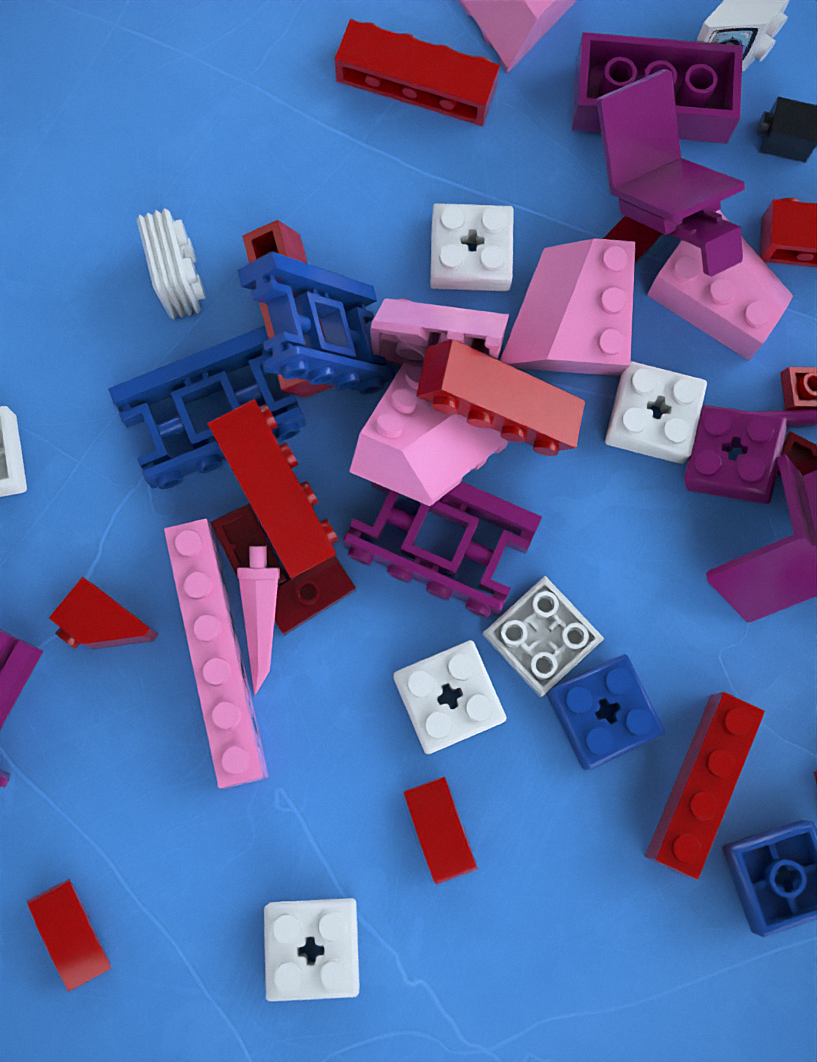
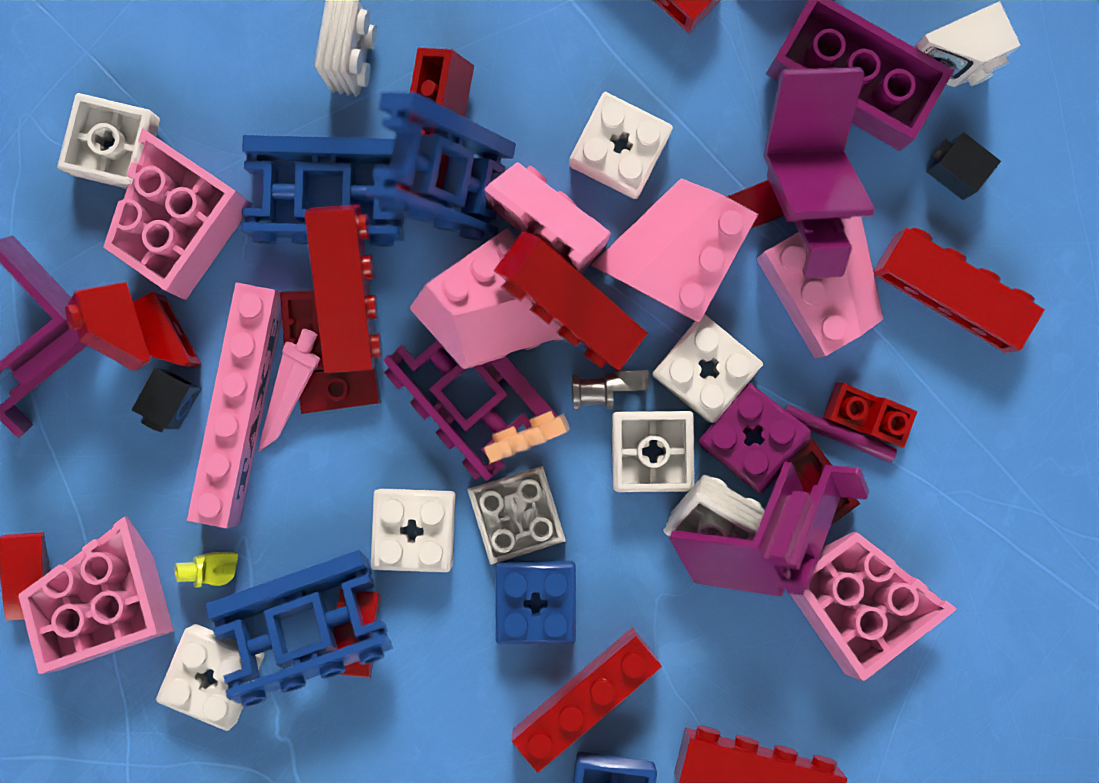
camera: 25 degrees right, 10 degrees up
(57, 622) = (109, 324): none -> red slope
(72, 497) = (172, 218): none -> bright pink wedge
(140, 682) = (165, 400): none -> black brick
(158, 924) = (96, 602): none -> bright pink wedge
(258, 835) = (208, 568): none -> neon yellow piece
(357, 822) = (287, 598): none -> blue fence
(532, 530) = (510, 442): none -> light nougat hinge
(569, 475) = (600, 390): none -> flat silver connector
(651, 485) = (671, 470): none -> white brick
(735, 531) = (715, 511): none -> white brick

